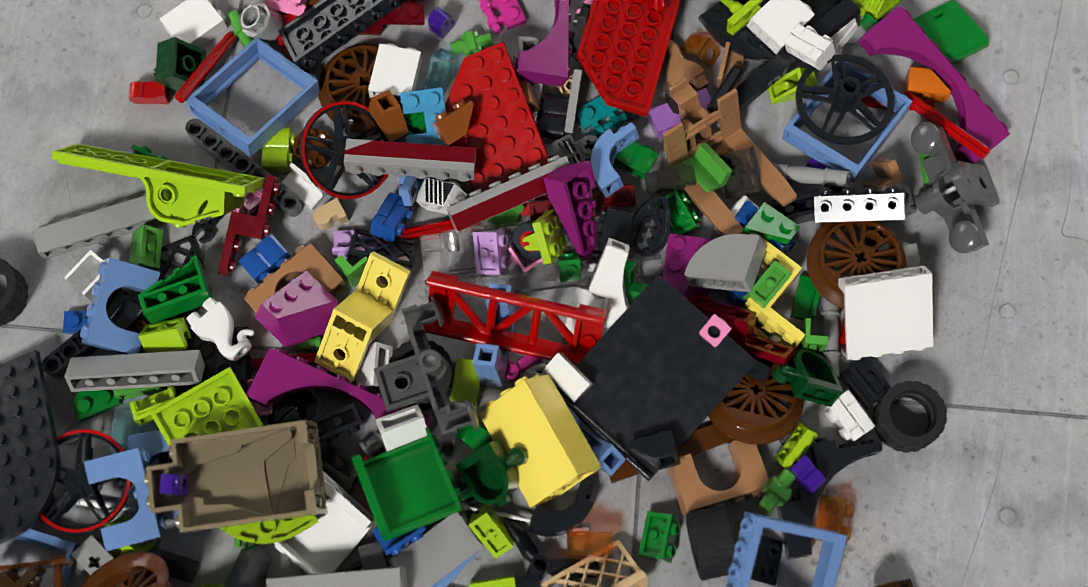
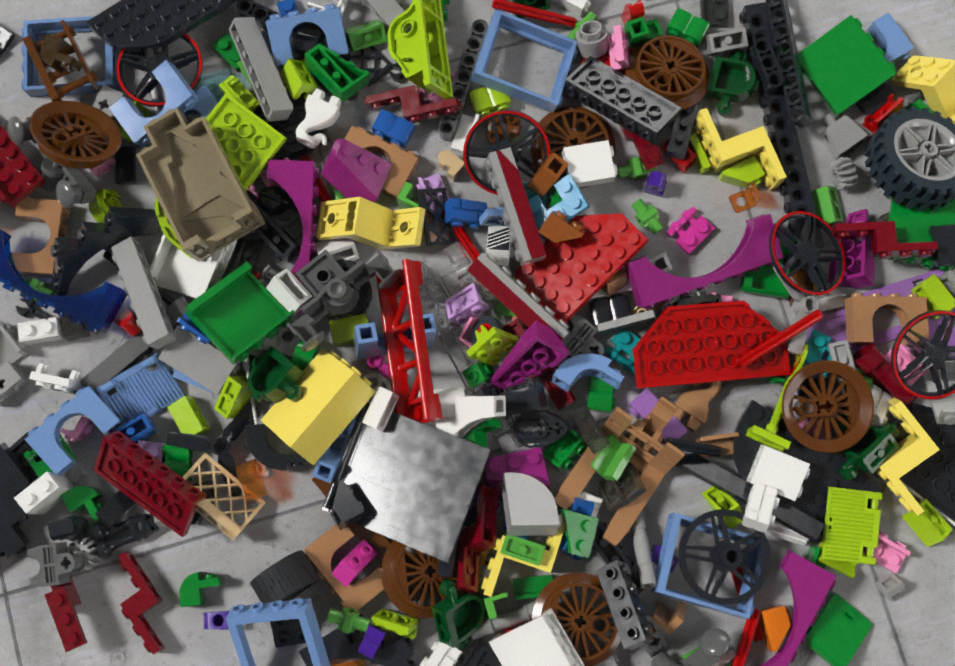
camera: 65 degrees right, 5 degrees up
(174, 484) = (170, 131): dark purple leg -> none
(416, 35) = (634, 169): none -> bright green axle
(441, 69) = (610, 201): clear light blue slope -> none
(660, 536) = (280, 536): green bracket -> none
(699, 46) = (725, 410): clear orange bracket -> none
(719, 464) = (354, 563): none -> dark pink brick
(720, 324) = (468, 518): bright pink bracket -> none

